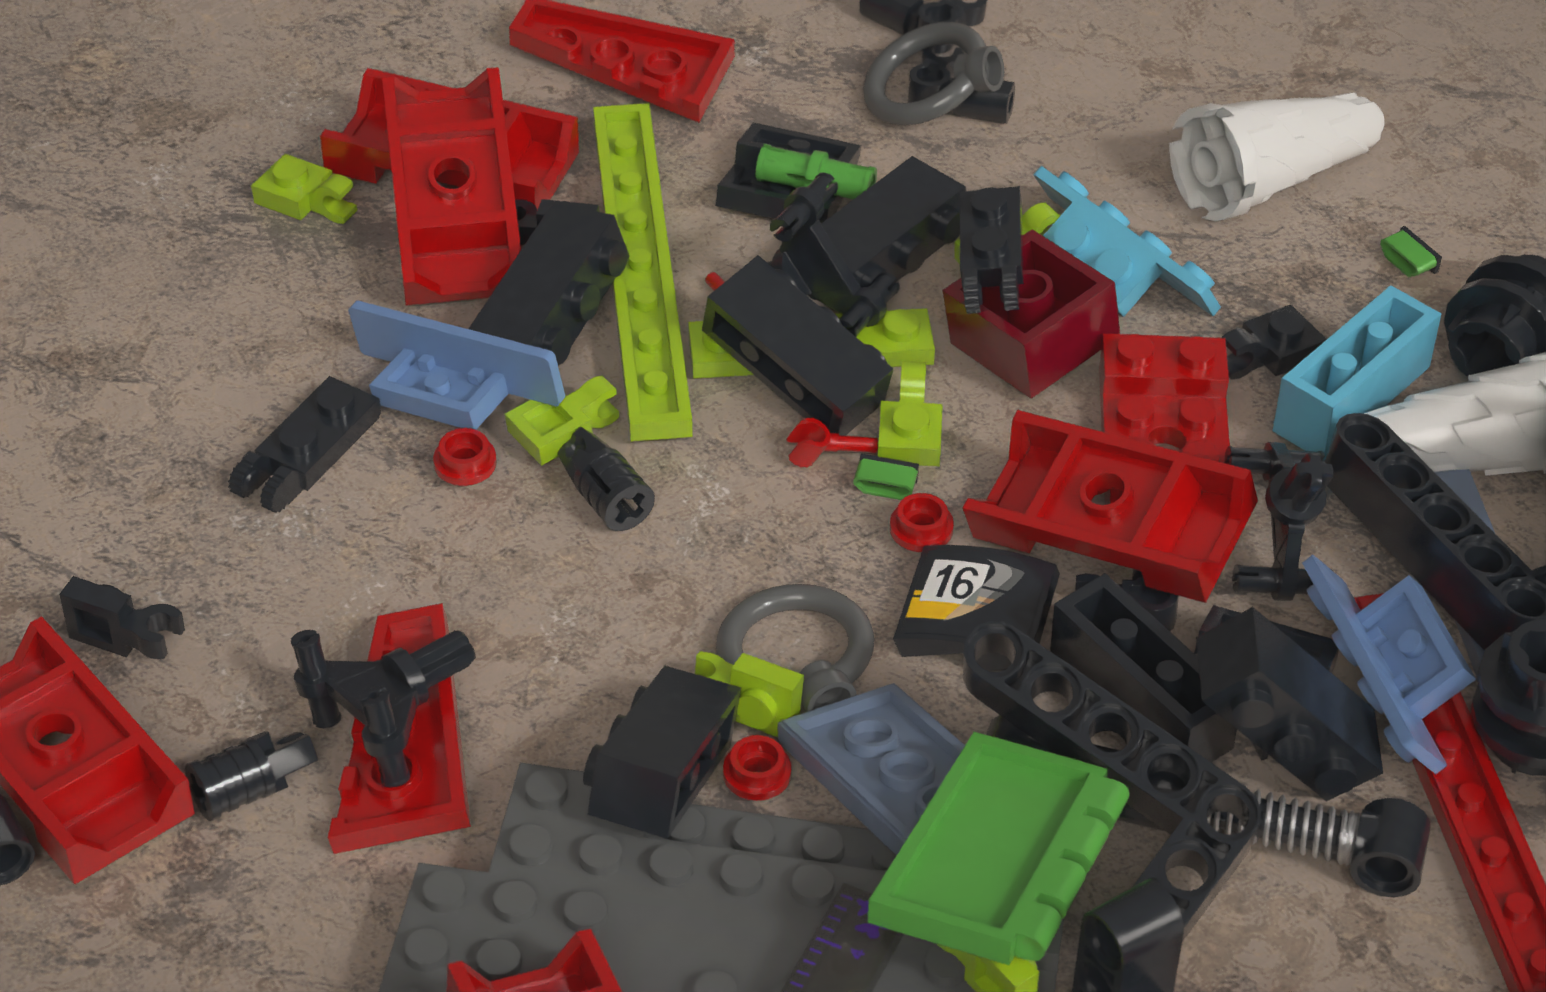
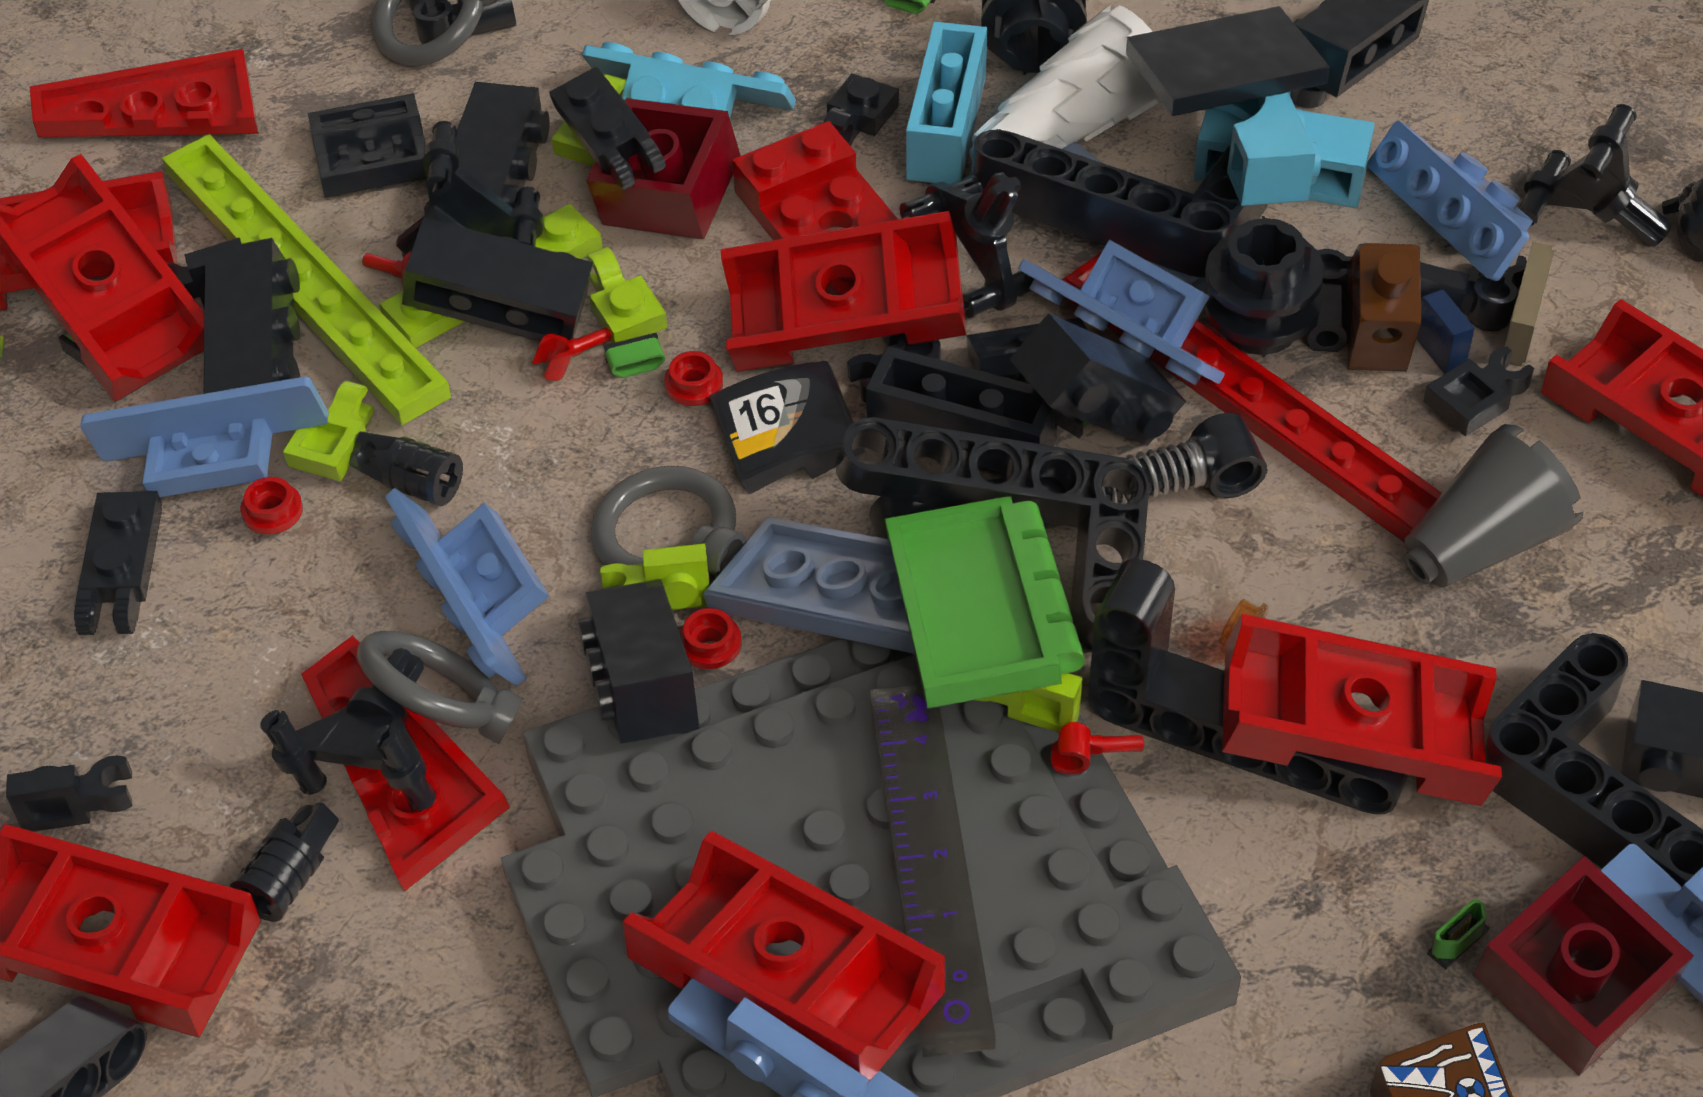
camera: 30 degrees left, 5 degrees up
(515, 730) = (491, 710): none -> dark grey piece
(587, 607) = (479, 574): none -> medium blue bracket
(800, 170) = (394, 132): bright green pin -> none

